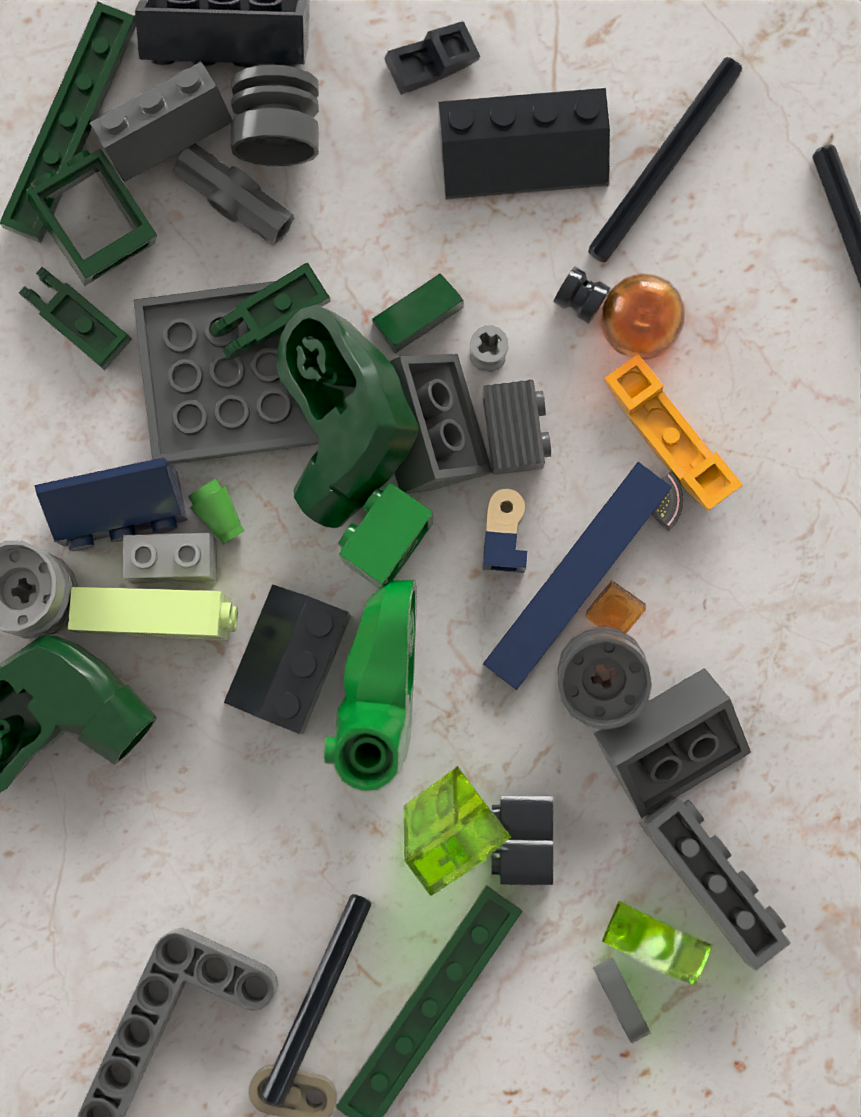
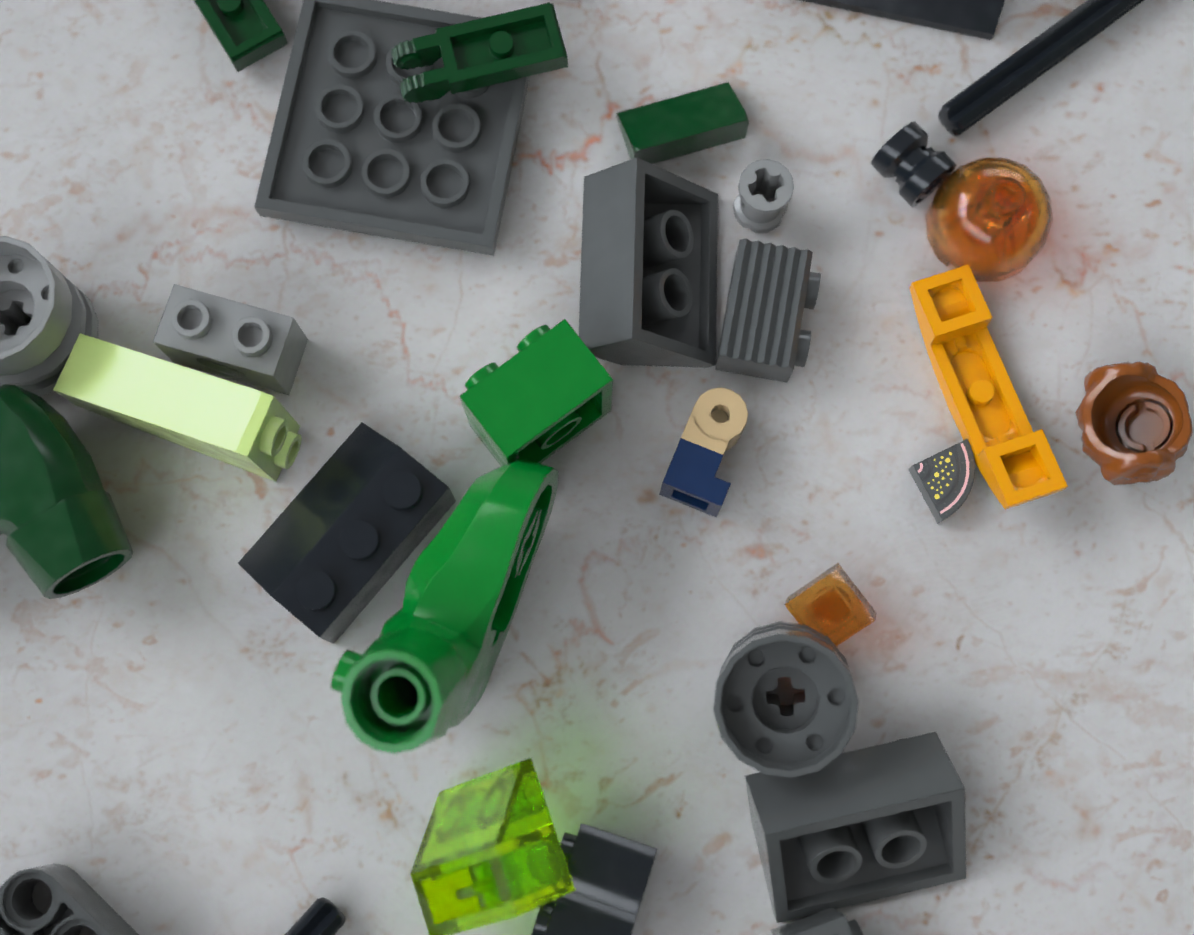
camera: 15 degrees right, 5 degrees down
(112, 503) = (178, 233): dark blue slope -> none
(216, 510) = (319, 297): bright green cone -> none
(353, 406) = (550, 209): dark green piece -> none
(577, 575) = (789, 543): dark blue tile -> none
(773, 428) = (1133, 422): none -> dark orange hair

